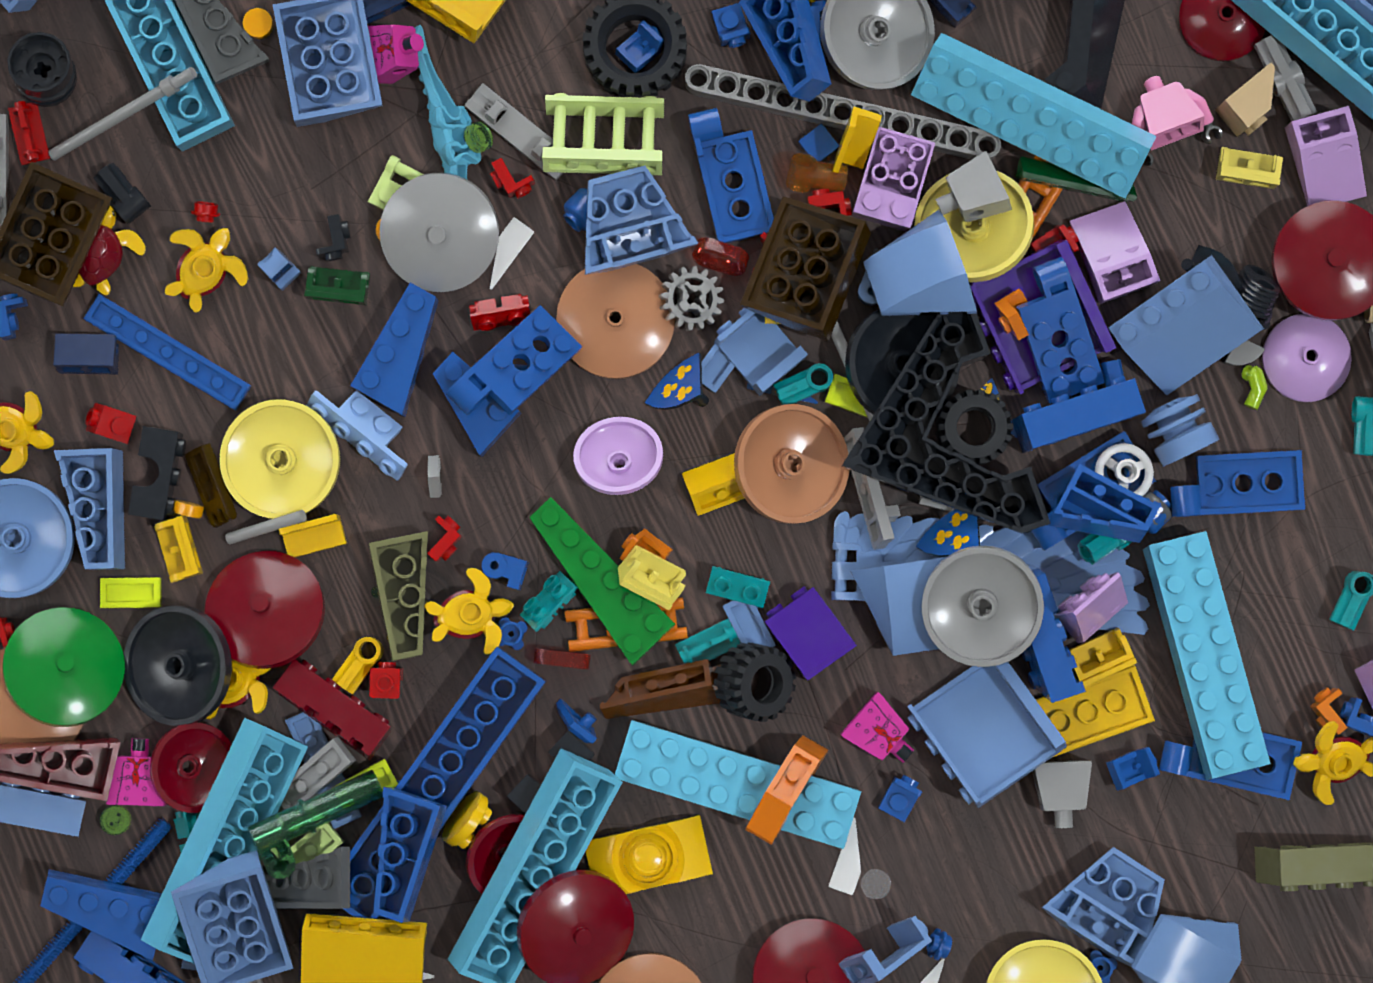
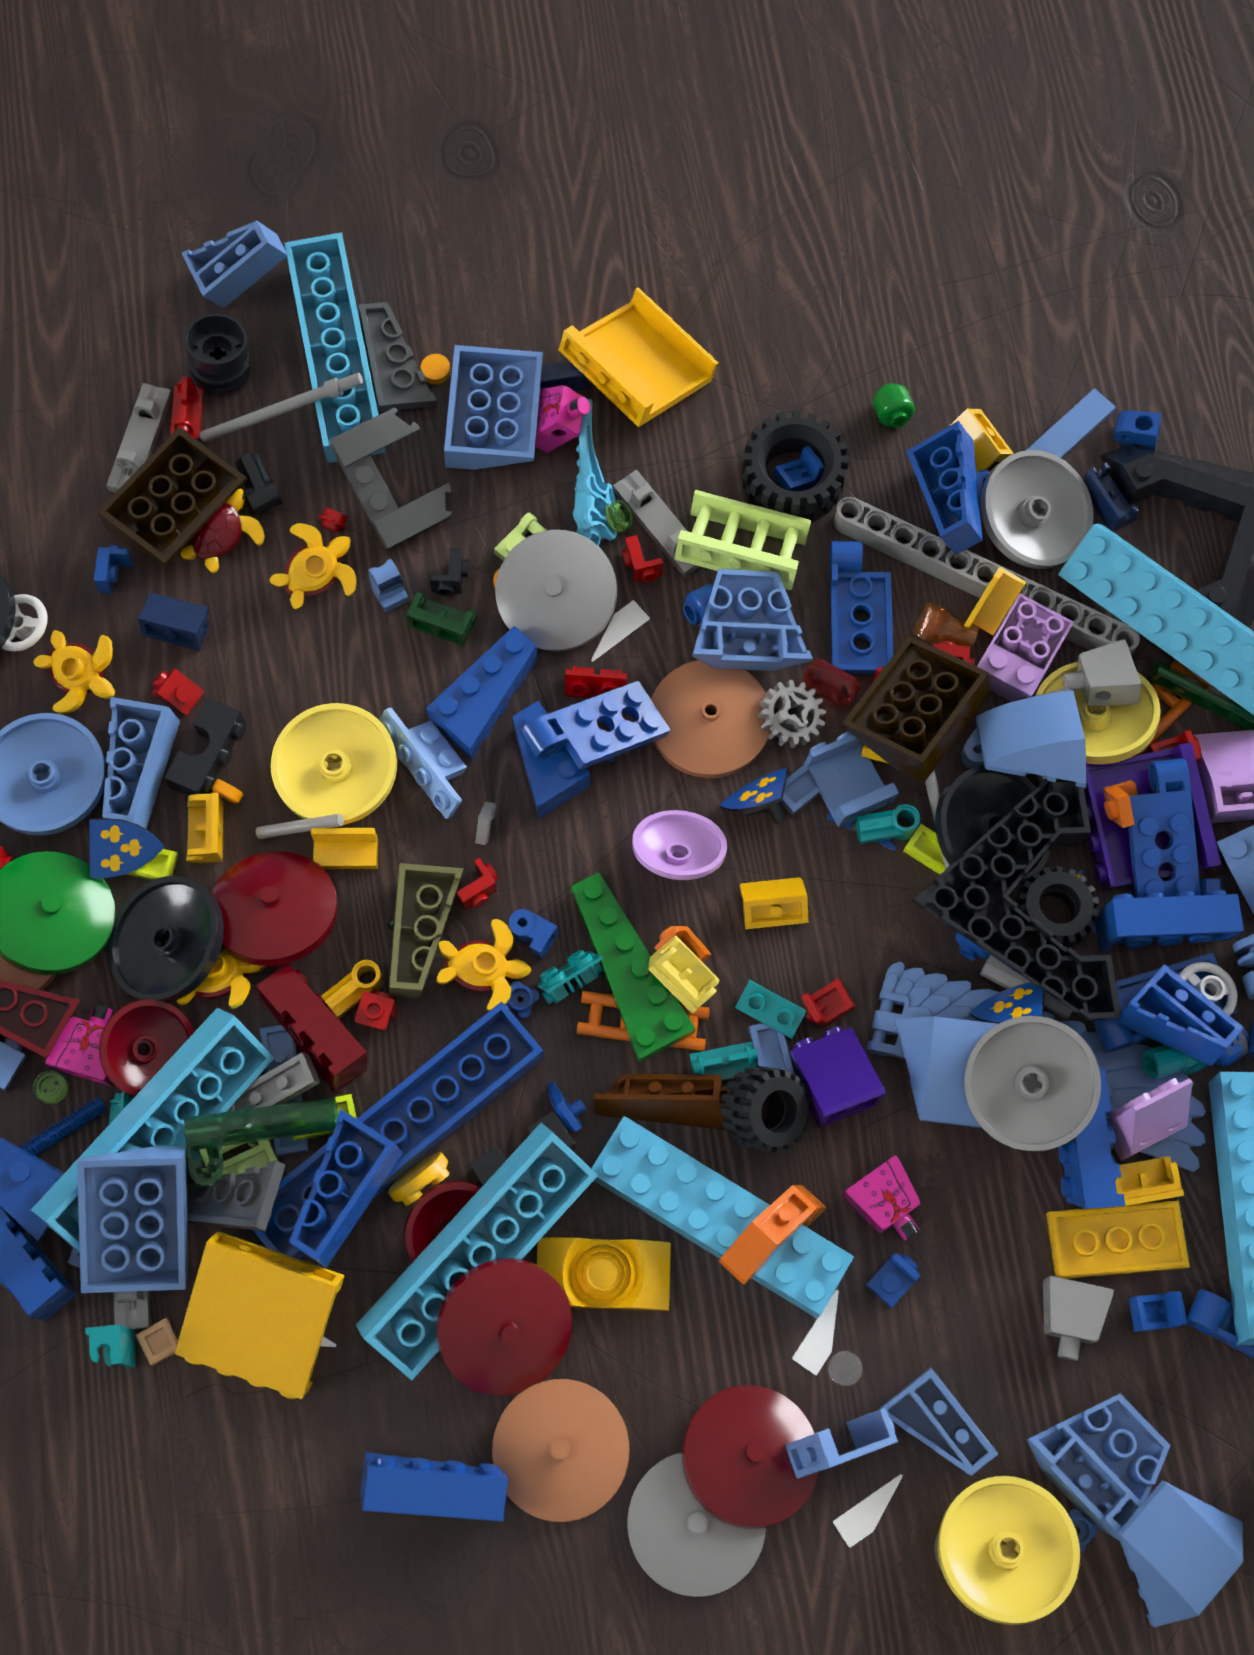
camera: 15 degrees right, 15 degrees down
(109, 591) = (119, 847): none -> blue shield
(167, 352) = (256, 641): blue tile -> none
(208, 145) = (354, 453): none -> dark grey wedge
(211, 485) = (257, 774): dark brown hinge -> none
(562, 659) = (566, 1037): clear red beam -> none
(731, 25) = (892, 477): blue bracket -> none
(787, 568) = (828, 1003): none -> red bracket
(791, 464) = (856, 898): nougat dish -> none
(819, 143) = (954, 601): blue tile -> none
(872, 502) = (935, 968): light grey hinge -> none
(940, 944) = (901, 1455): blue plate -> none
(965, 909) = (938, 1420): none -> medium blue wedge
(986, 730) = (1006, 1227): medium blue panel -> none

